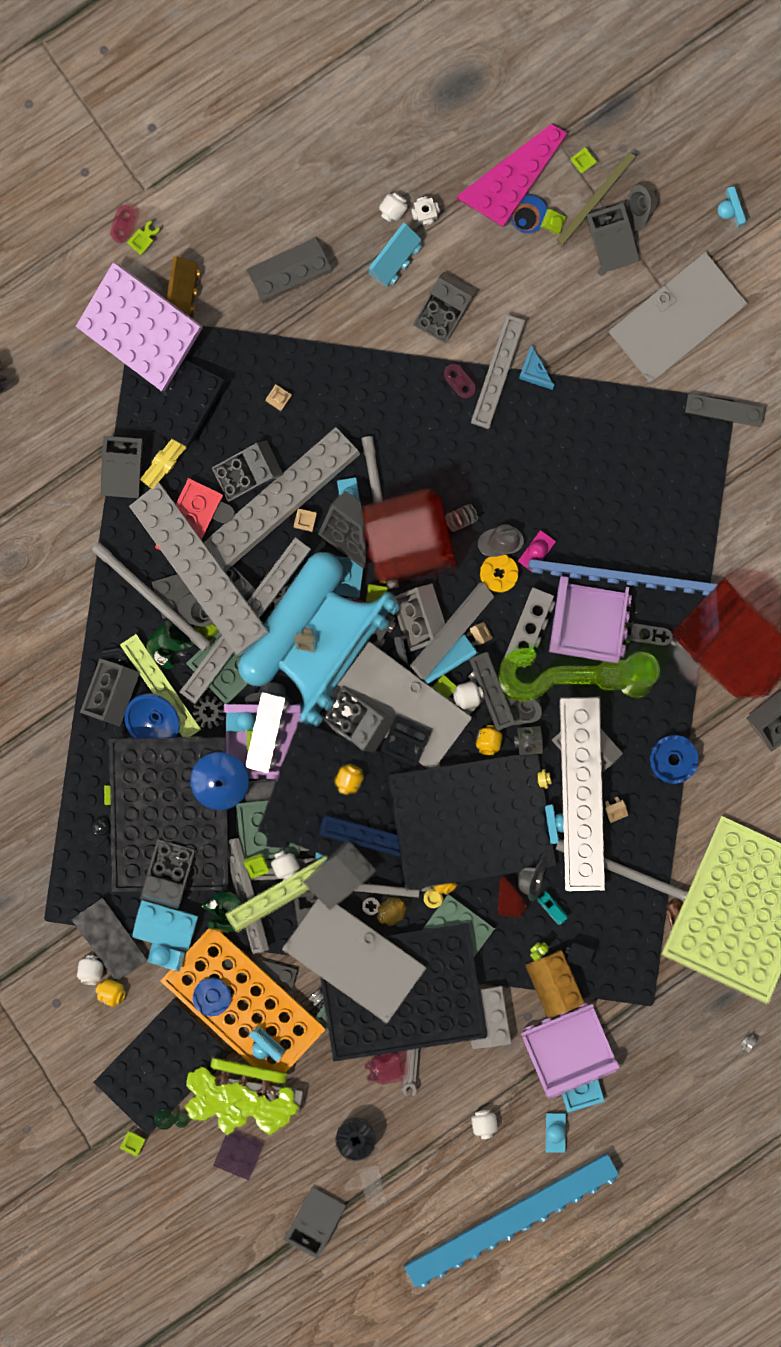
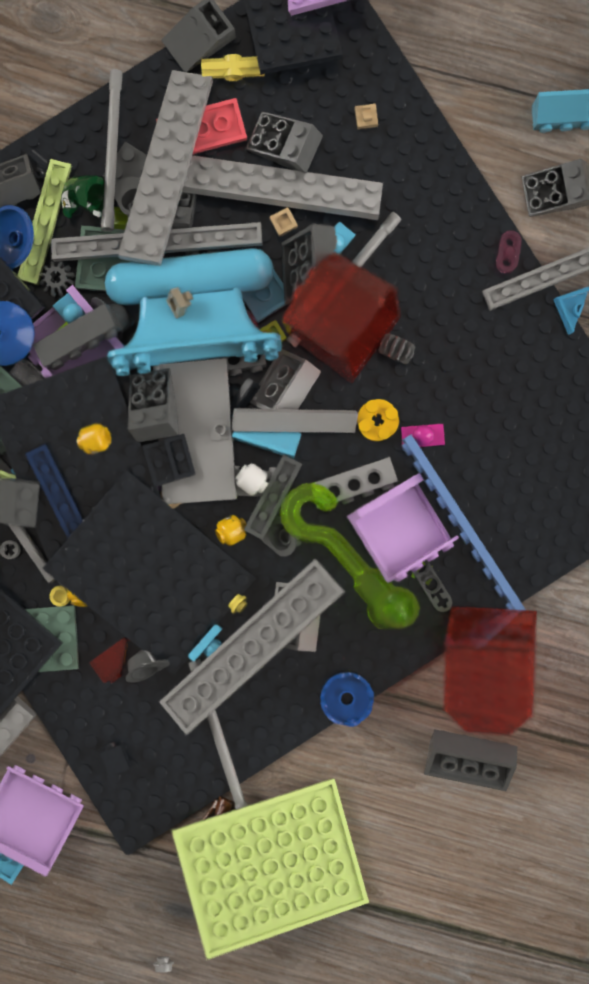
camera: 55 degrees right, 0 degrees up
(223, 513) = (232, 152): dark grey tile -> none
(289, 270) = (477, 38): dark grey slope -> none
(391, 911) = (19, 570): clear yellow head -> none
(444, 687) = (243, 455): lime plate -> none
(480, 634) = (314, 447): tan tile -> none
(500, 541) = (405, 398): dark grey piece -> none
(529, 740) = (259, 563): flat silver brick -> none
(538, 950) = (90, 722): lime plate -> none
(554, 984) = (74, 759): pearl gold slope -> none
(555, 910) = (136, 706): teal bar -> none
(616, 810) = (263, 687): tan tile -> none

